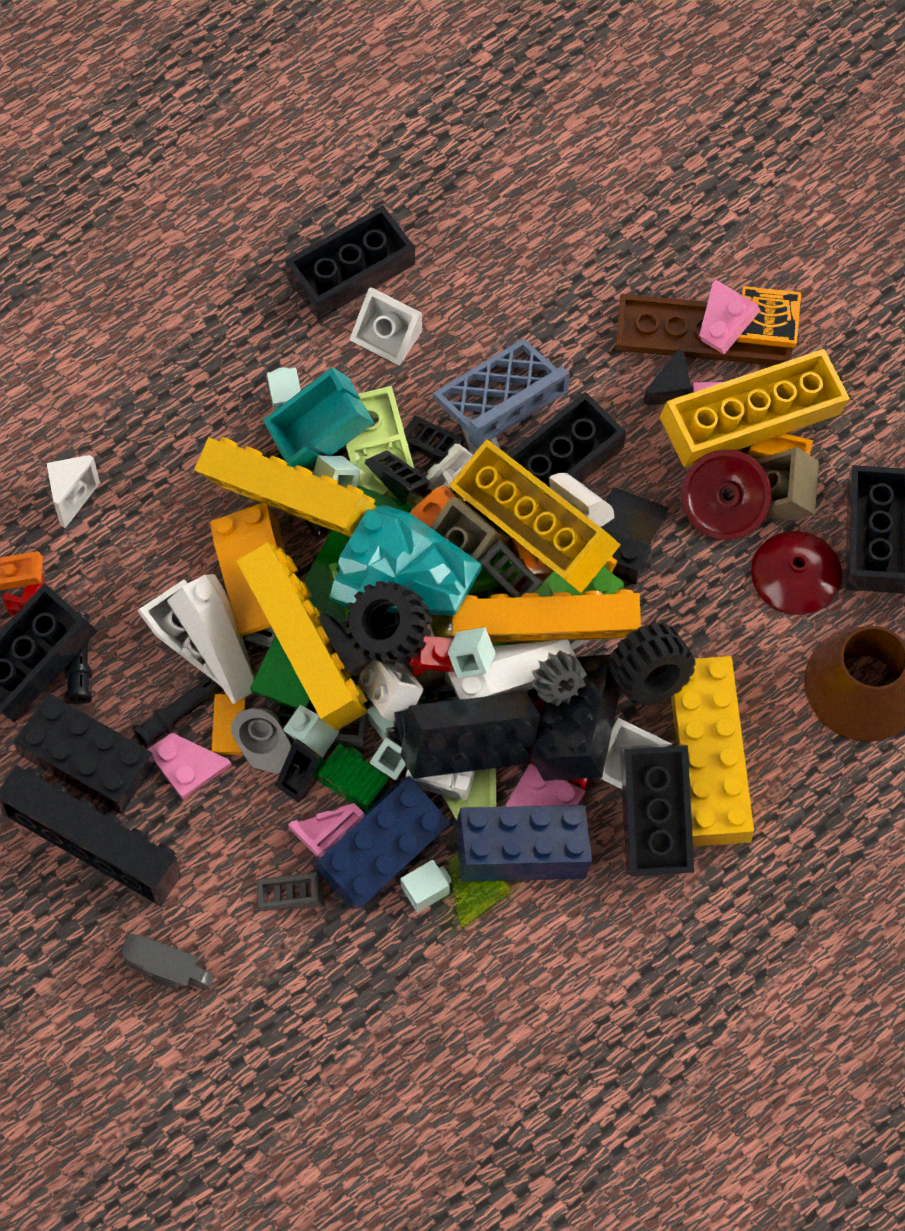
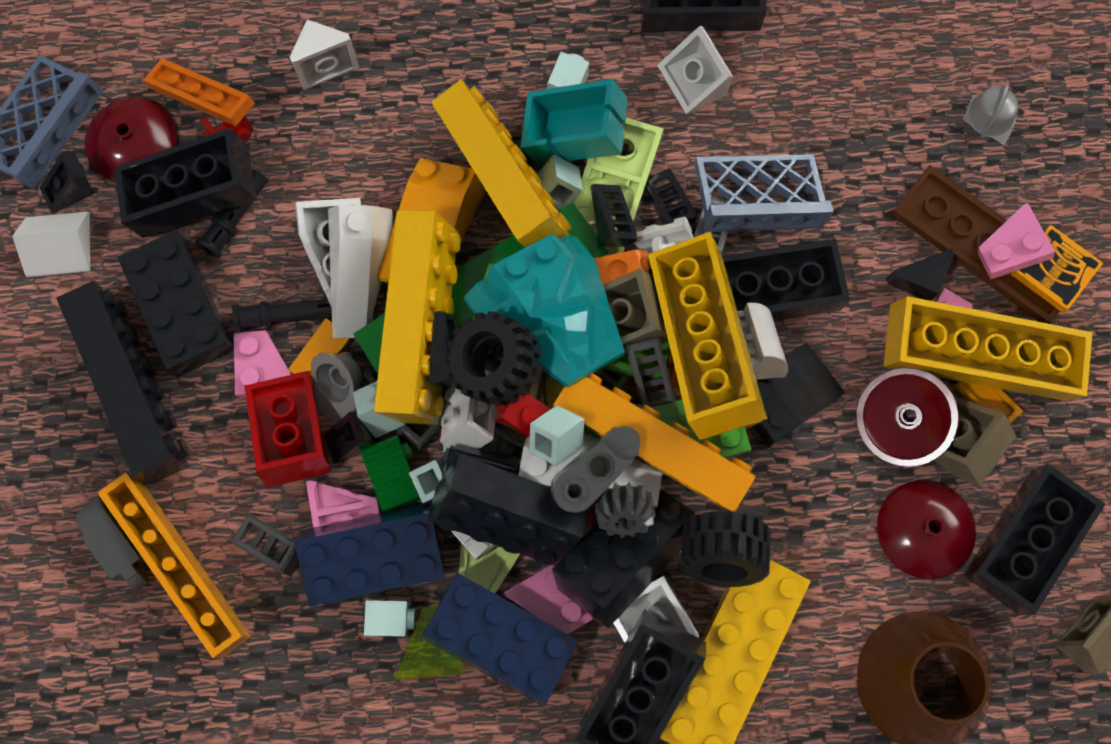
camera: 30 degrees right, 10 degrees up
(229, 947) = (174, 565): none -> light orange brick
(246, 794) = (286, 430): none -> red slope
(521, 636) = (618, 450): none -> dark grey piece
(645, 225) = (993, 113): none -> light grey piece

